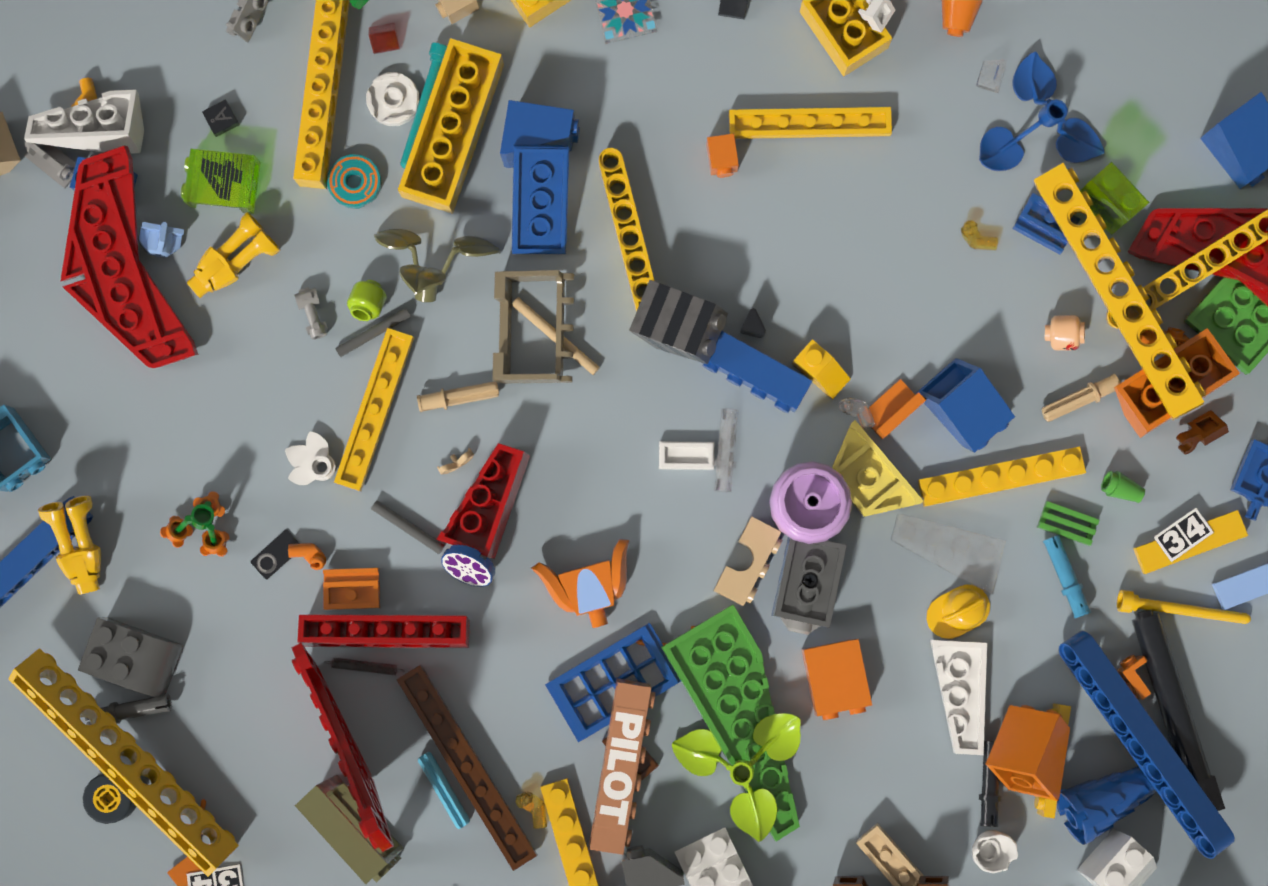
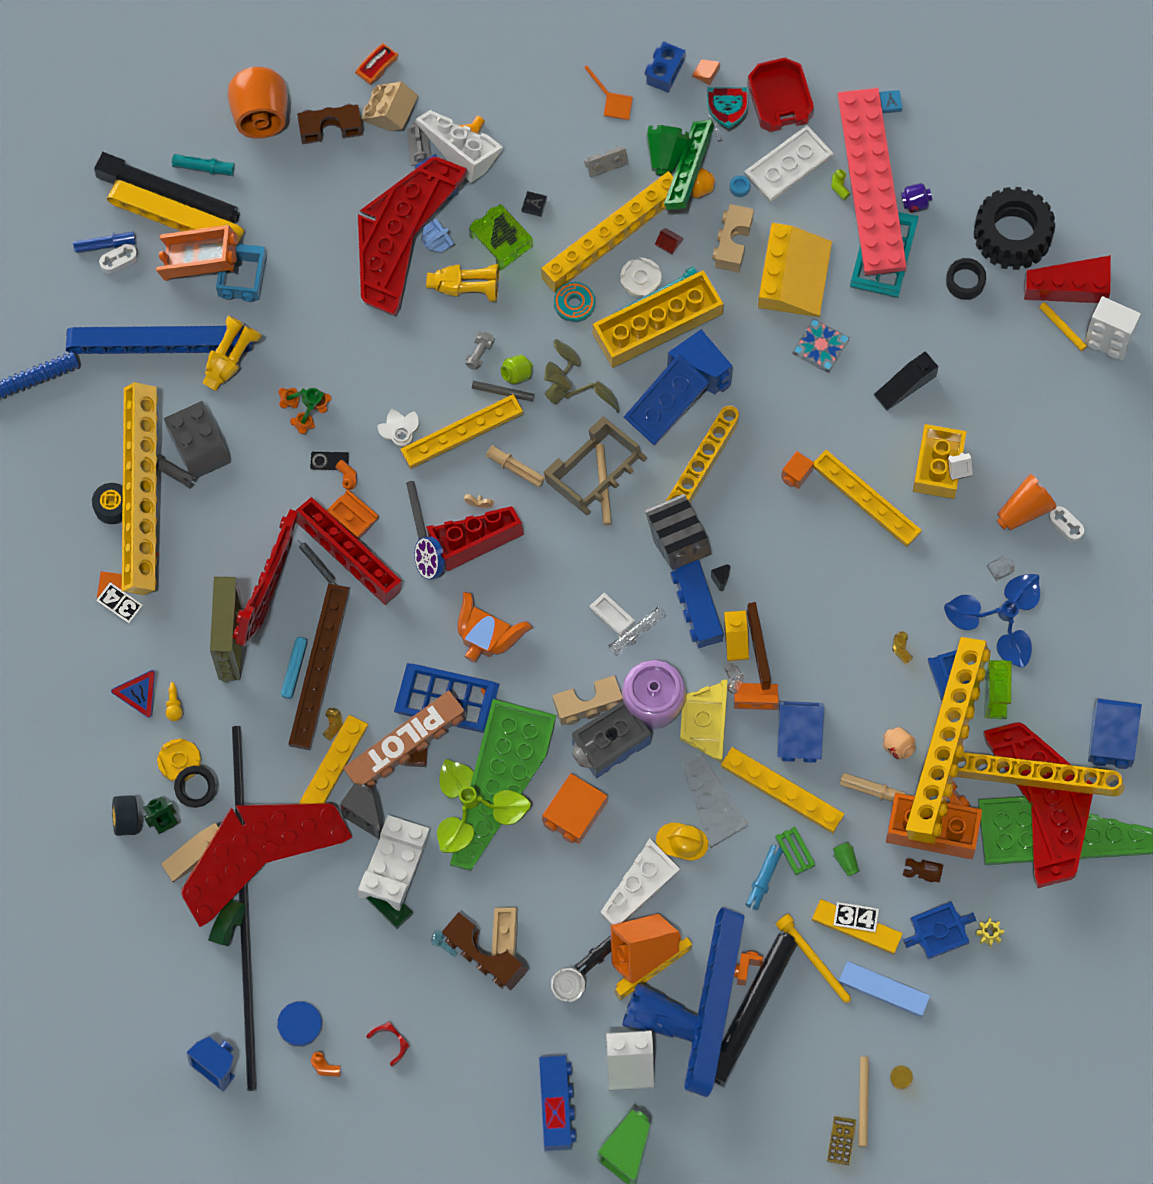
camera: 40 degrees right, 15 degrees down
(852, 360) = (758, 645): none -> reddish brown tile

